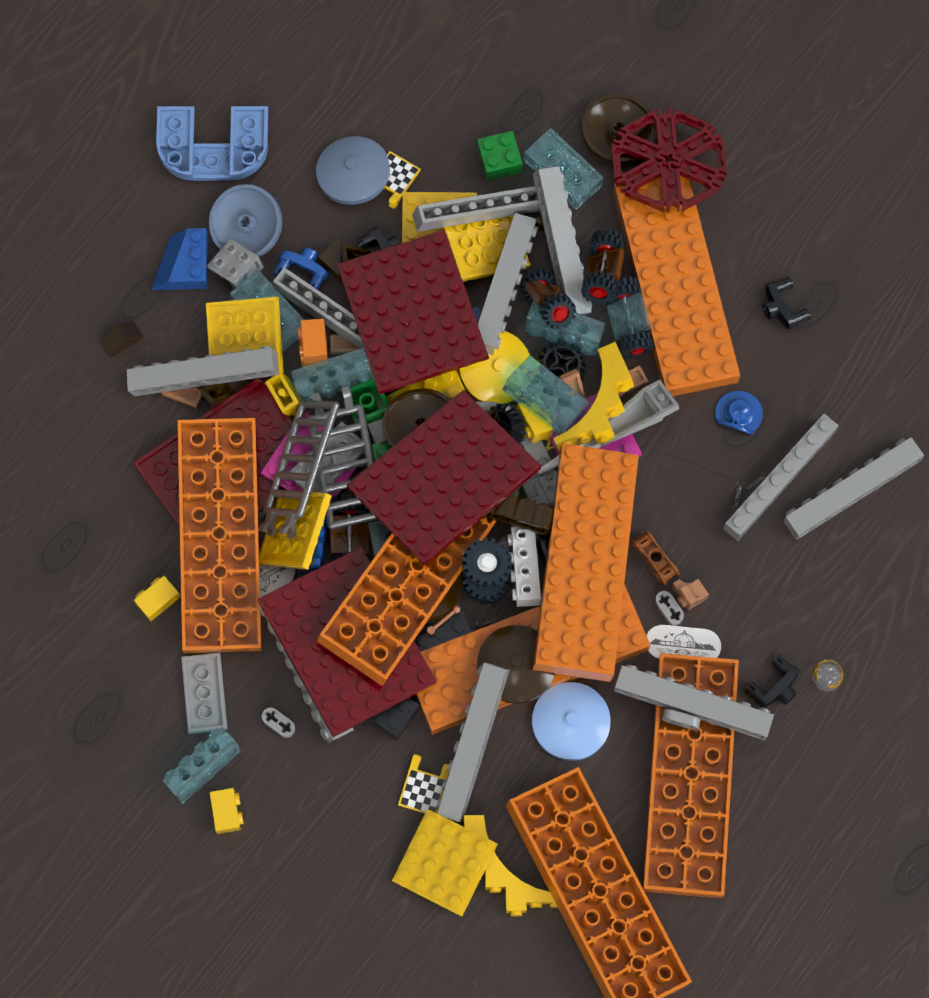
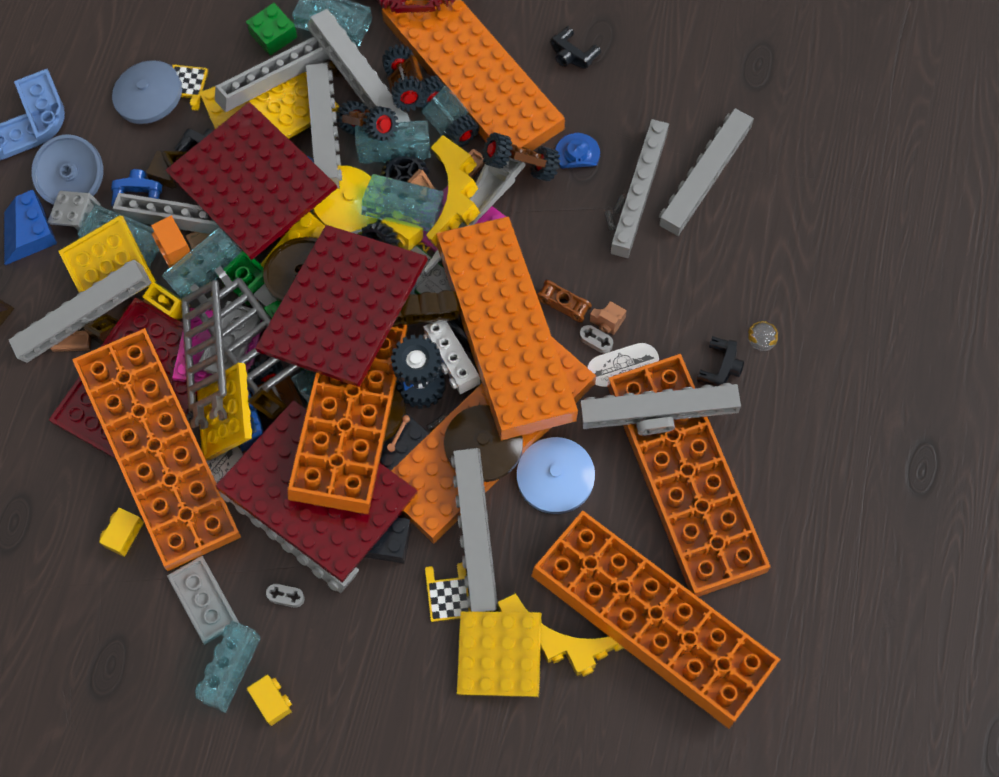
camera: 20 degrees left, 5 degrees down
(336, 539) = (267, 402): none -> dark brown slope
(661, 385) = (500, 148): none -> black plate

